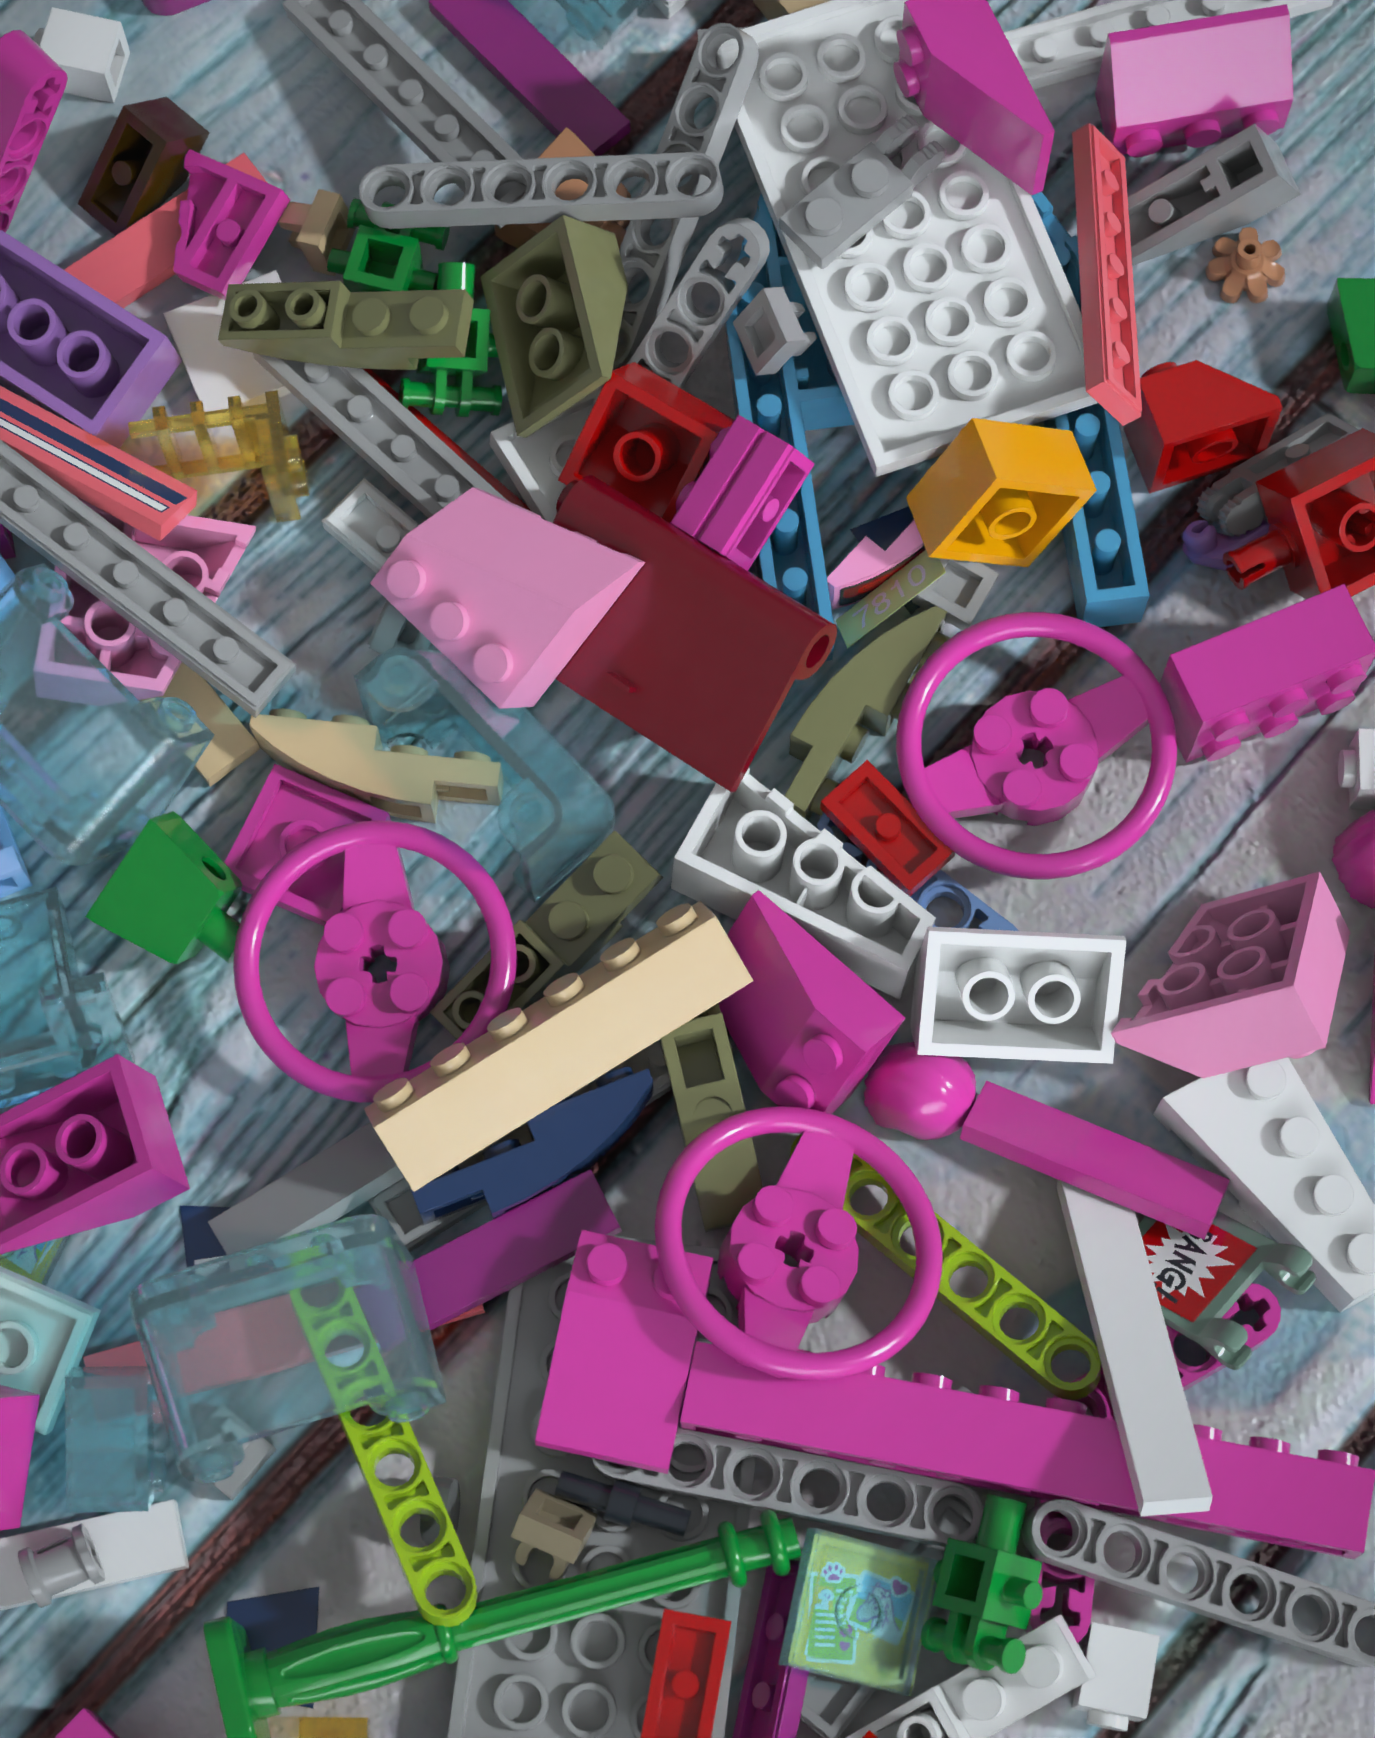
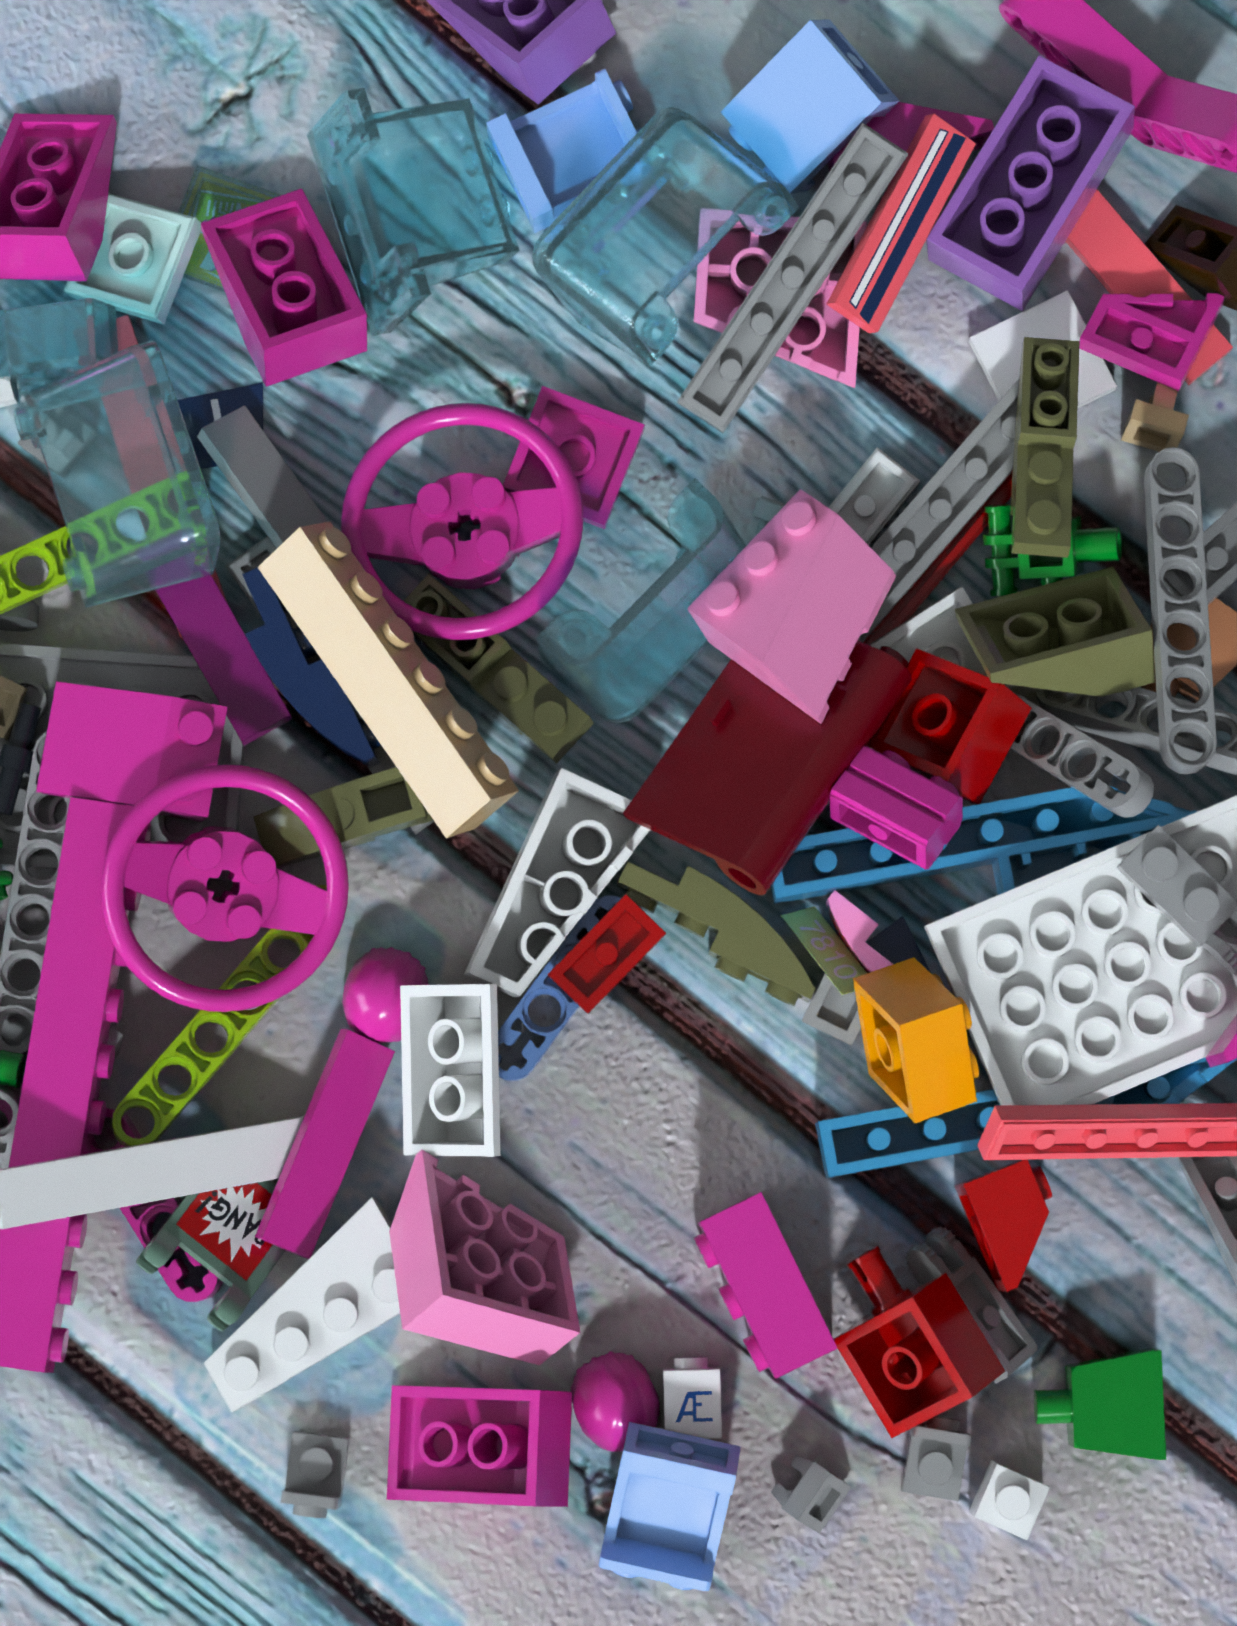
camera: 90 degrees right, 10 degrees up
(171, 894) = (517, 347): green torso -> none
(231, 740) = (677, 365): tan tile -> none
(261, 441) = (918, 401): clear yellow plate -> none
(351, 760) = (647, 493): tan slope -> none
(384, 256) = (1115, 478): green piece -> none
(772, 330) = (1055, 825): light grey tile -> none
(806, 1017) = (432, 885): dark pink slope -> none
(1069, 733) = (664, 1046): dark pink piece -> none
(1207, 547) = (896, 1239): medium lavender arm -> none
(1246, 266) = (1173, 1275): nougat plant -> none

